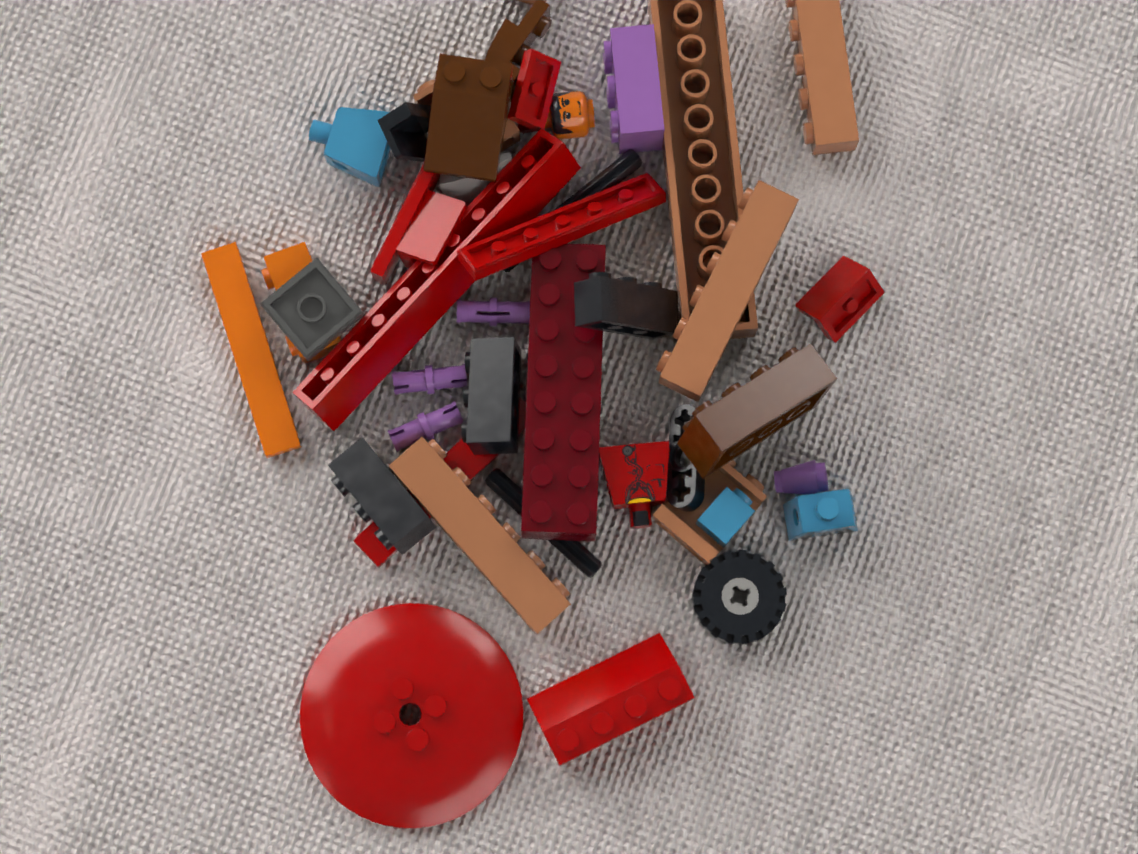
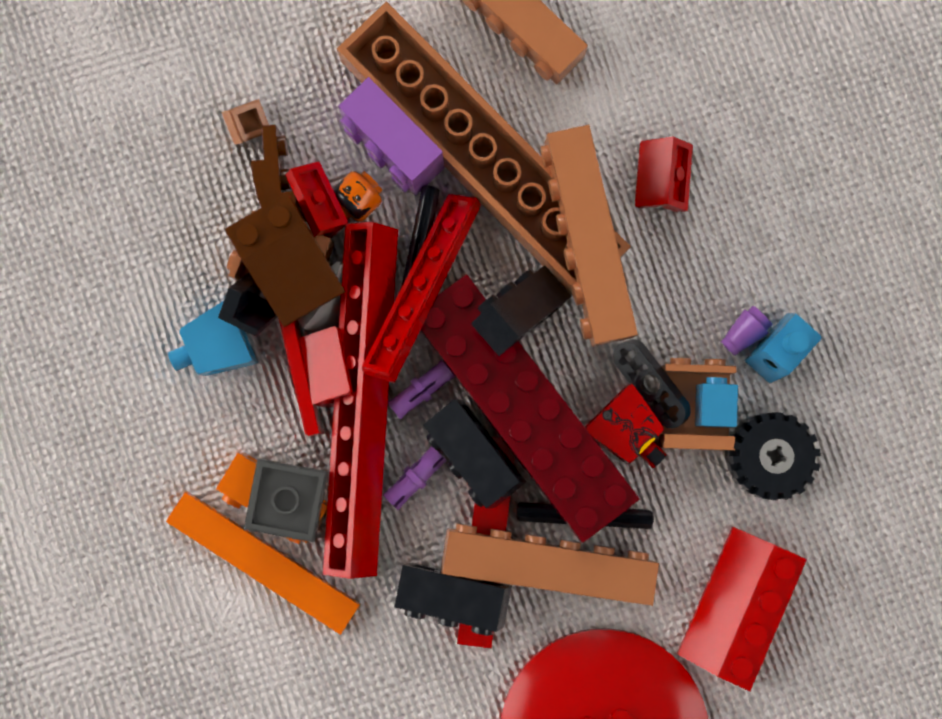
camera: 40 degrees left, 5 degrees up
(425, 426) = (440, 515): medium lavender pin -> none
(756, 409) = (680, 309): reddish brown brick -> none

